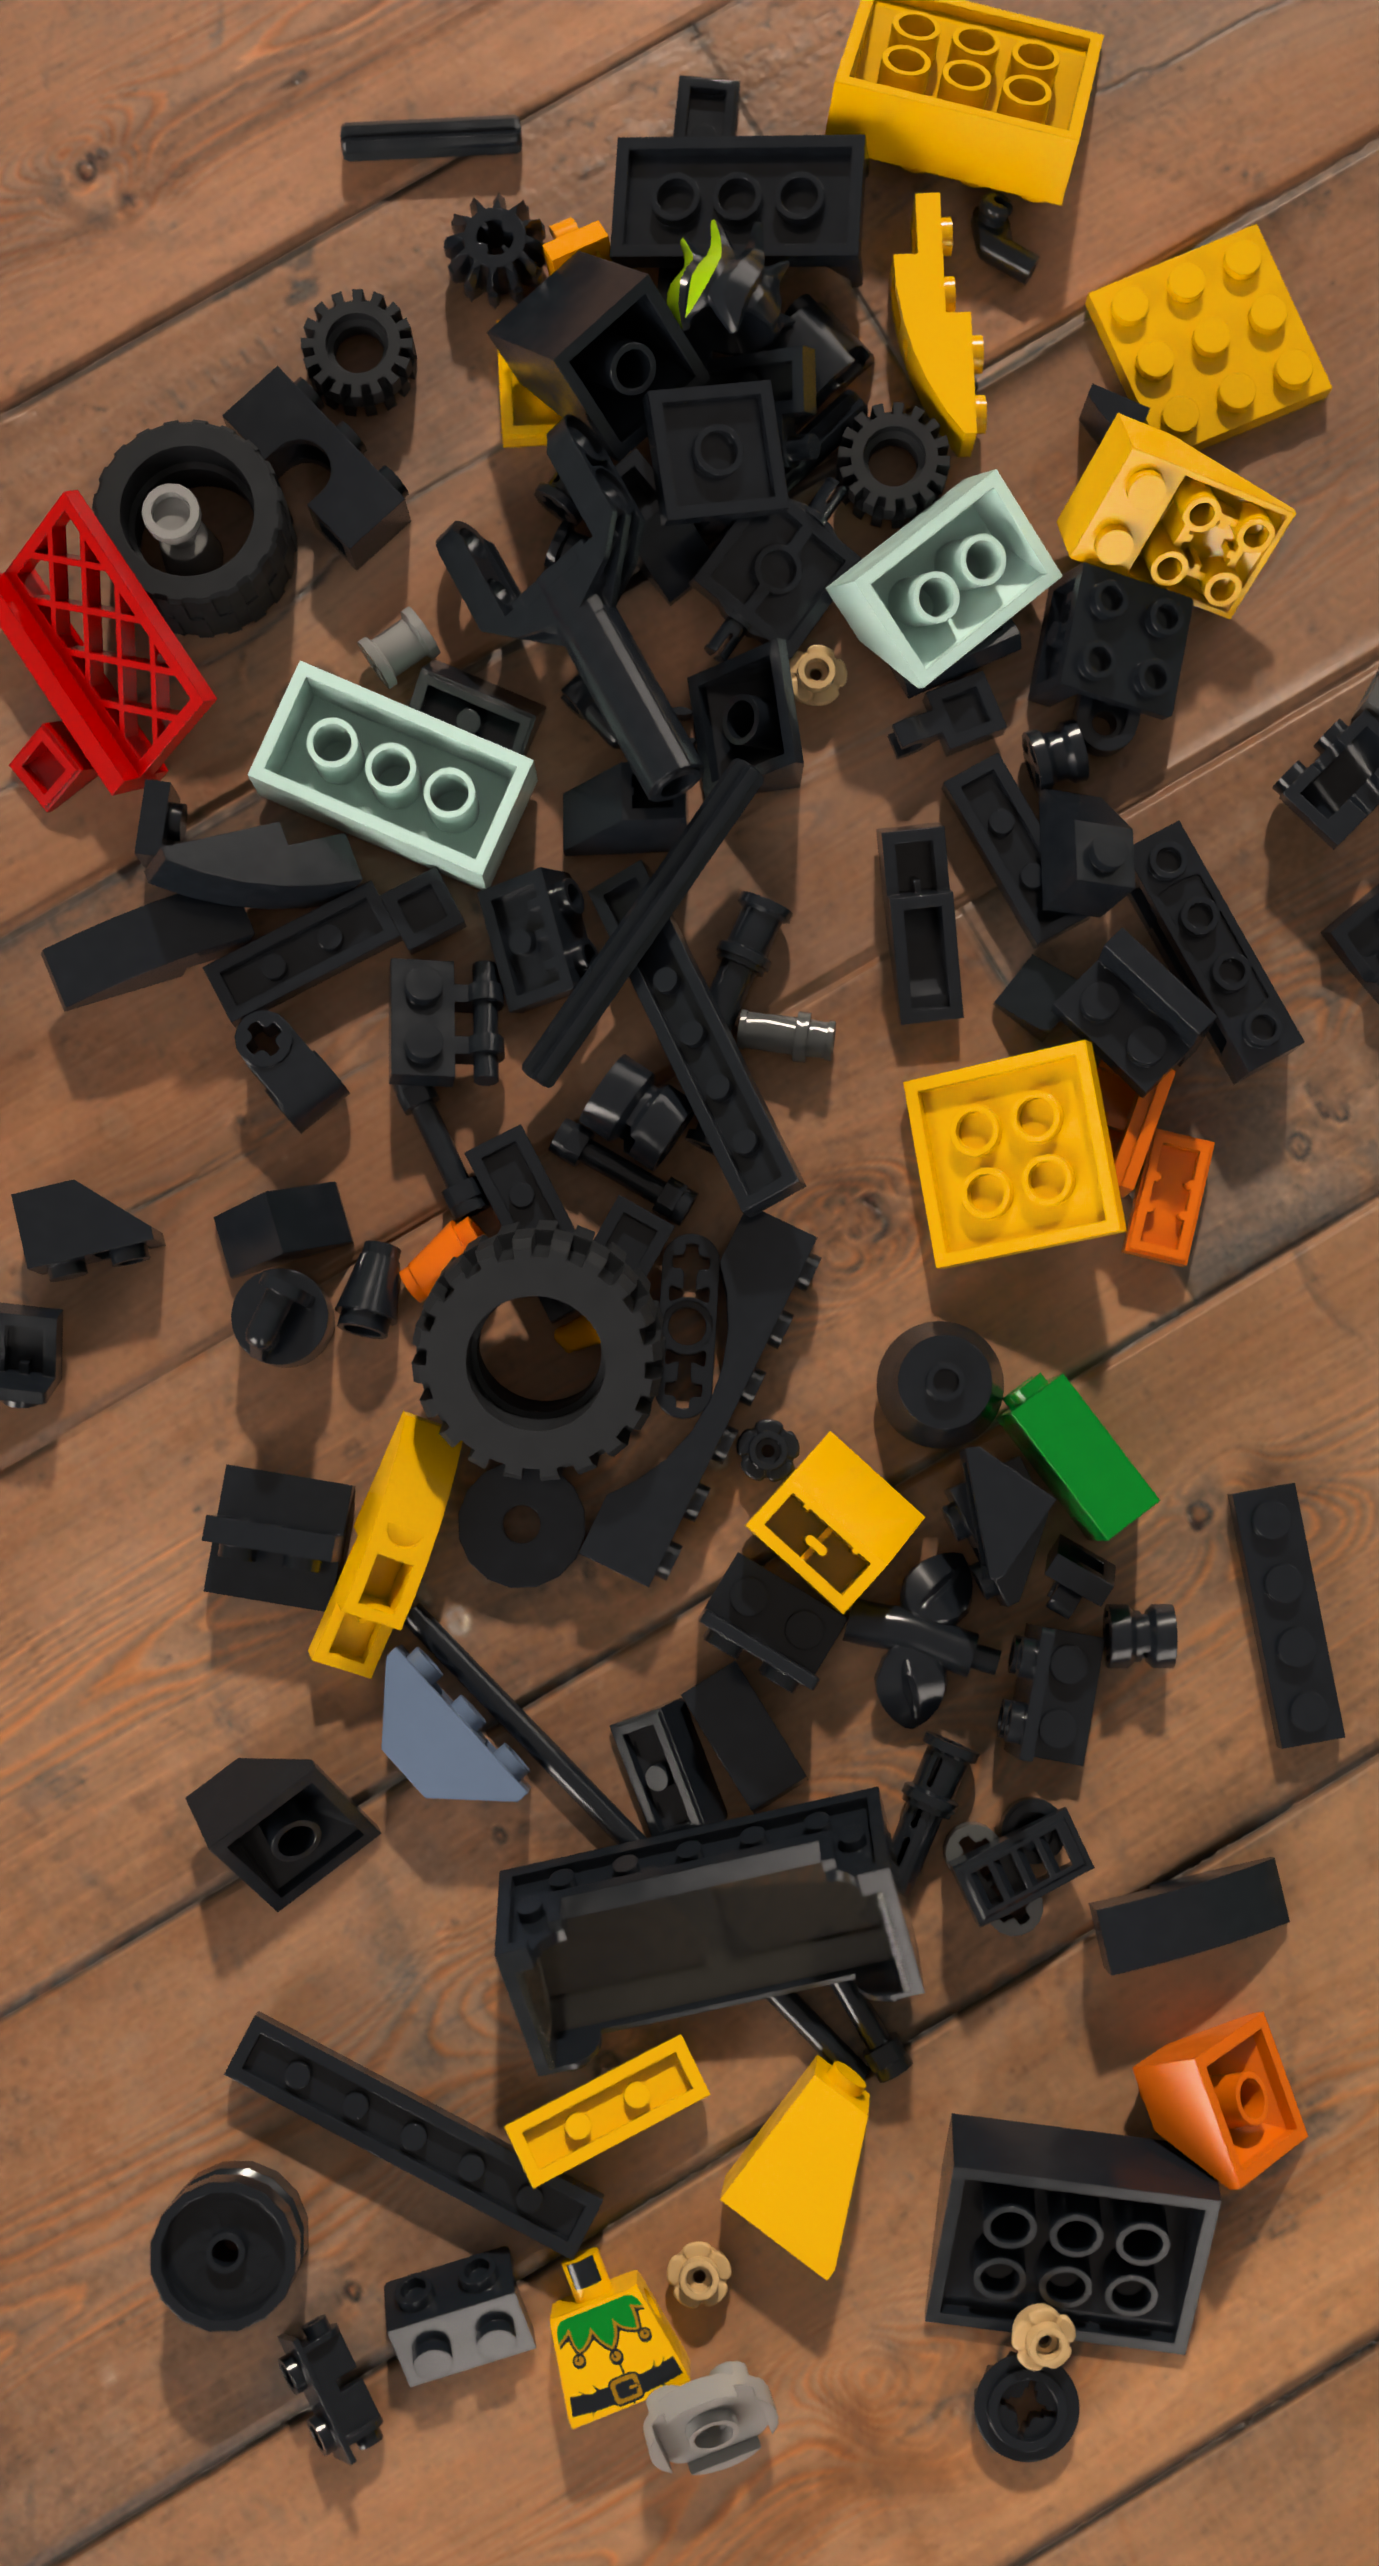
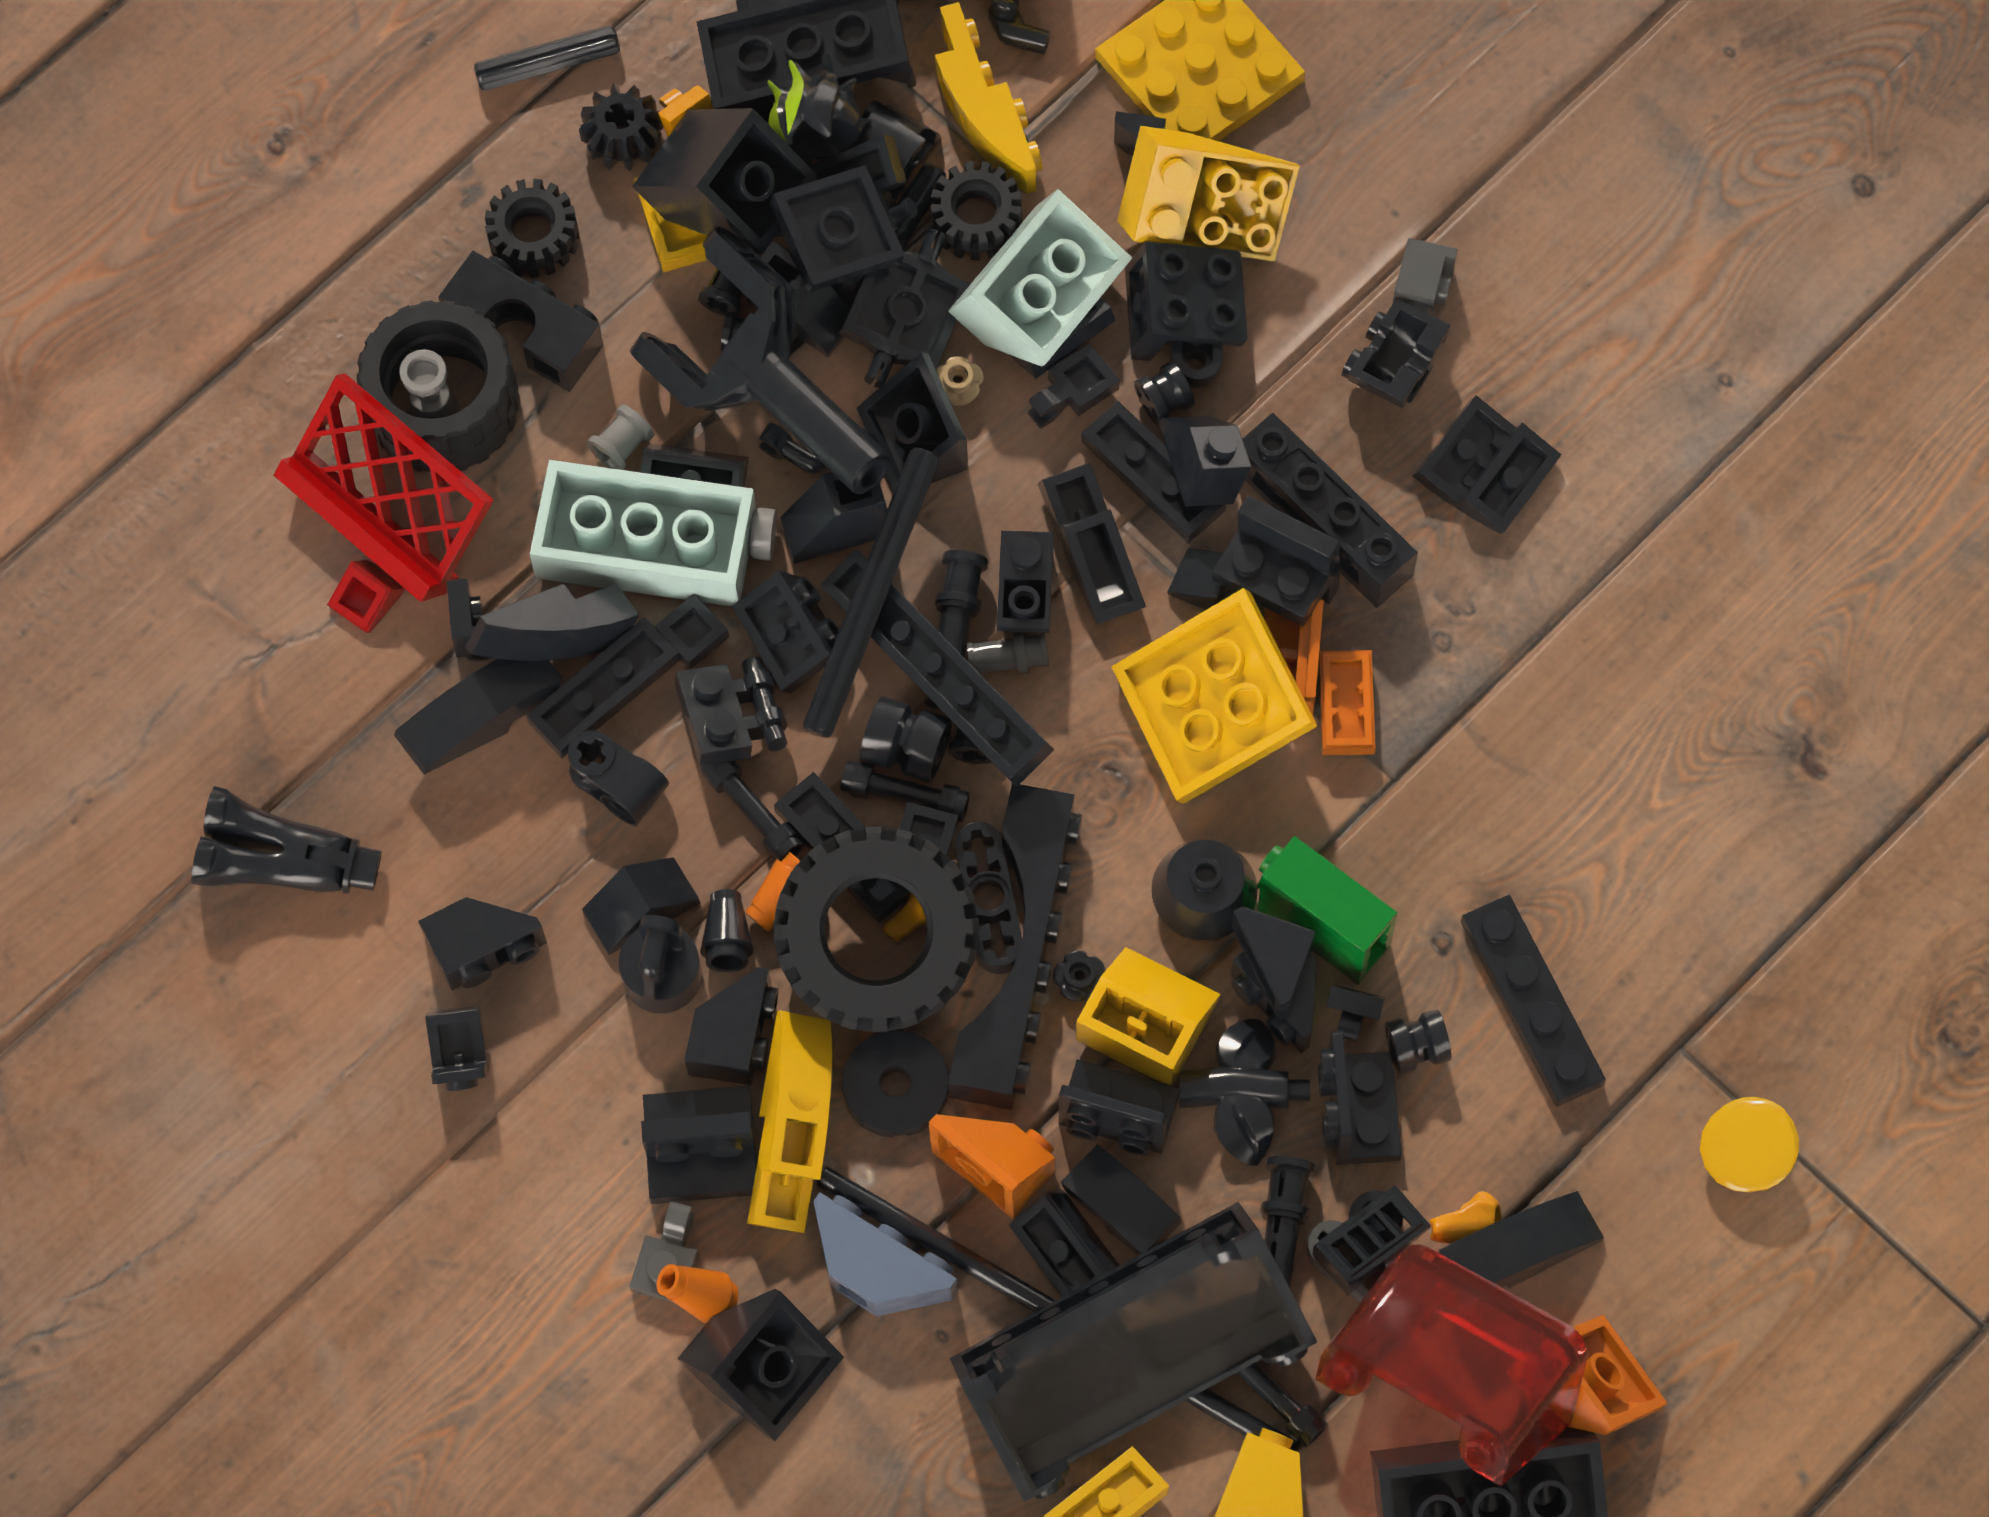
camera: 10 degrees left, 15 degrees down
(203, 1670) = (669, 1250): none -> dark grey plate
(229, 1724) = (698, 1290): none -> orange cone
(343, 1416) = (728, 1030): none -> black slope
(537, 811) = (763, 534): none -> light grey tile
(614, 1657) = (994, 1158): none -> orange slope
(827, 957) = (1025, 581): none -> black slope
(1083, 2065) = (1465, 1353): none -> clear red windscreen
(1144, 1871) = (1471, 1217): none -> light orange animal

